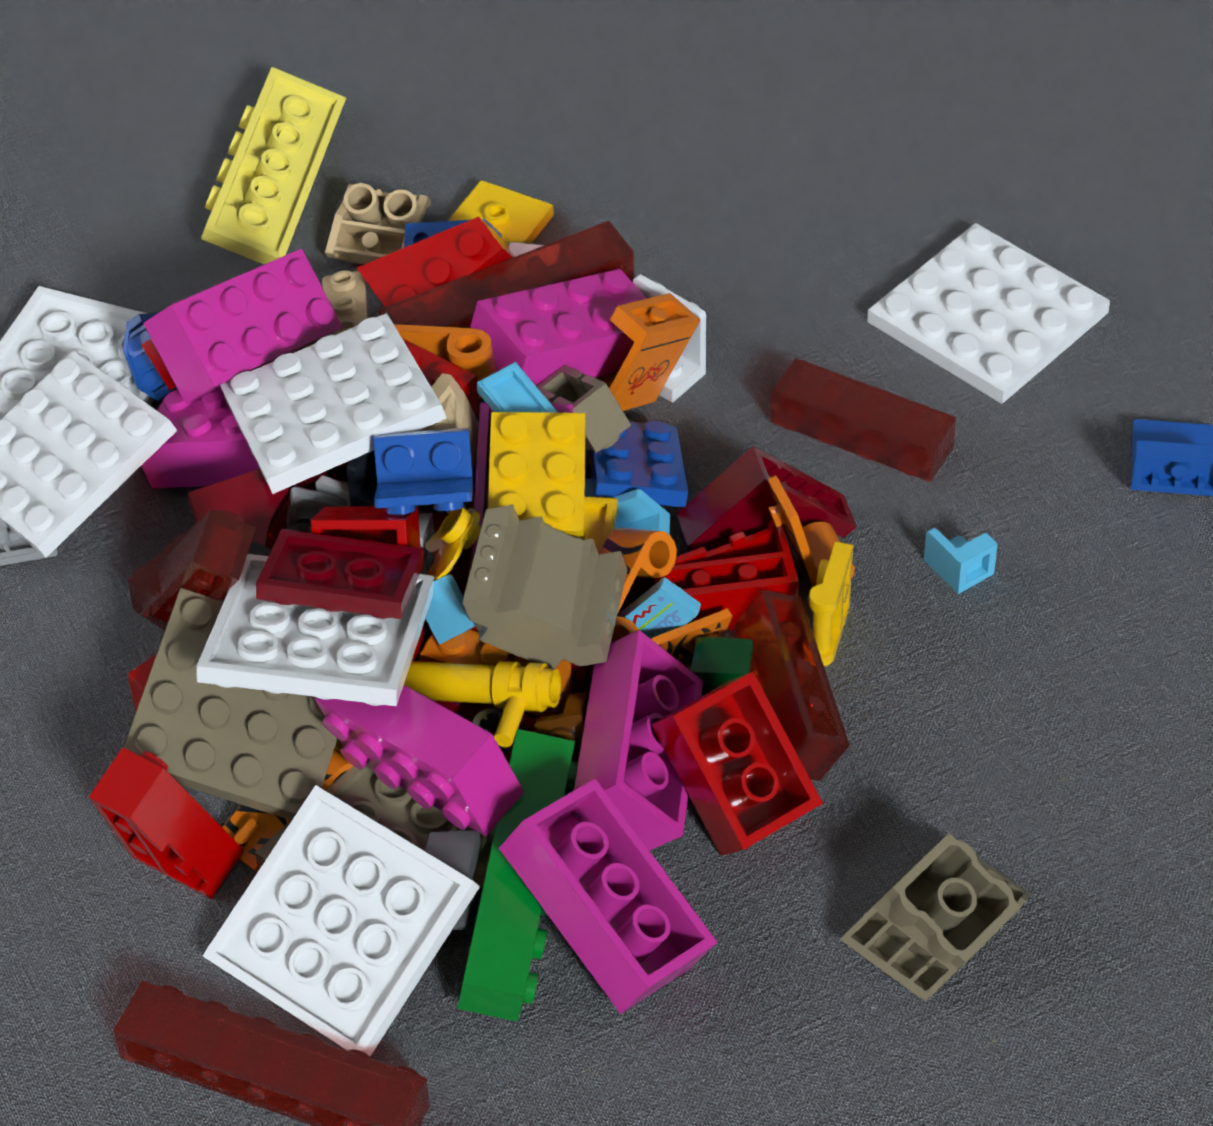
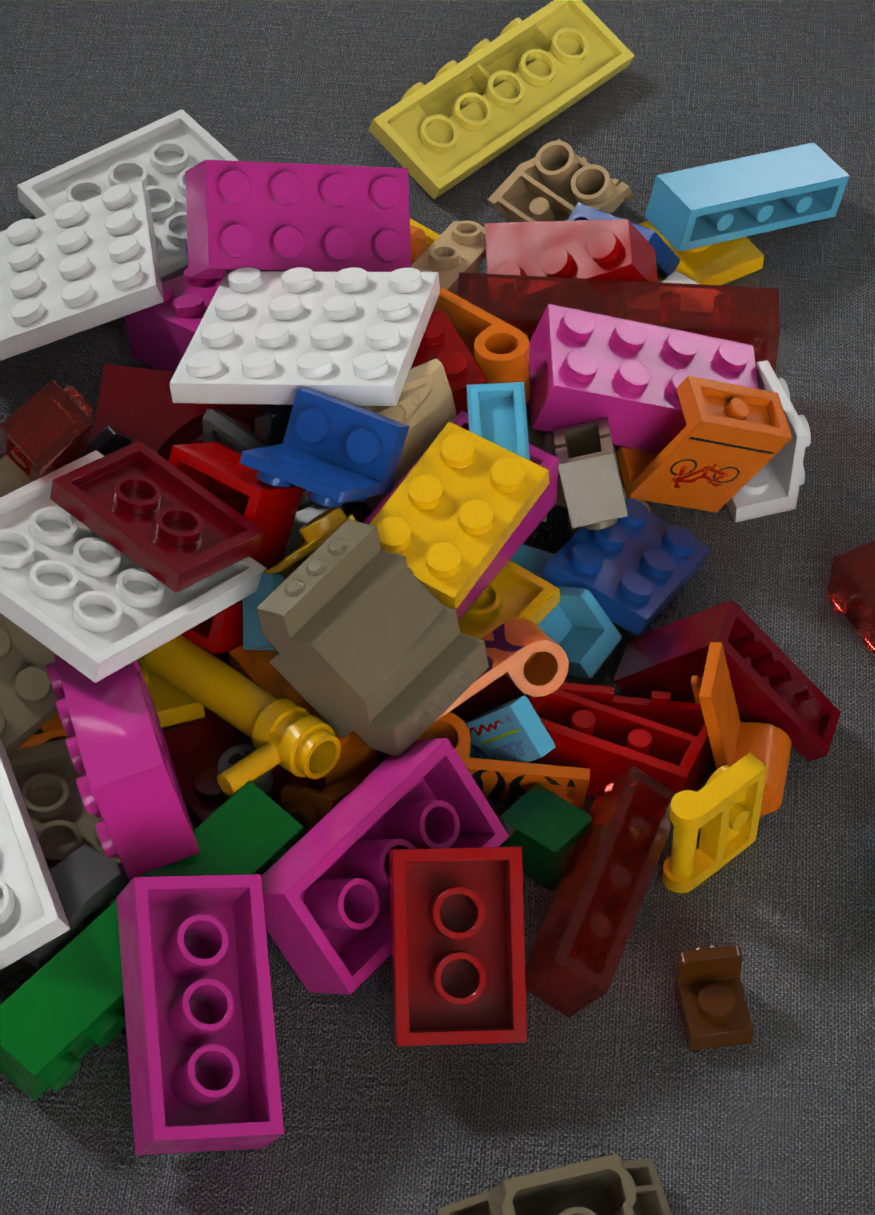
camera: 30 degrees right, 0 degrees up
(515, 166) = (746, 196): none -> medium azure brick
(905, 719) = (712, 997): none -> reddish brown bracket

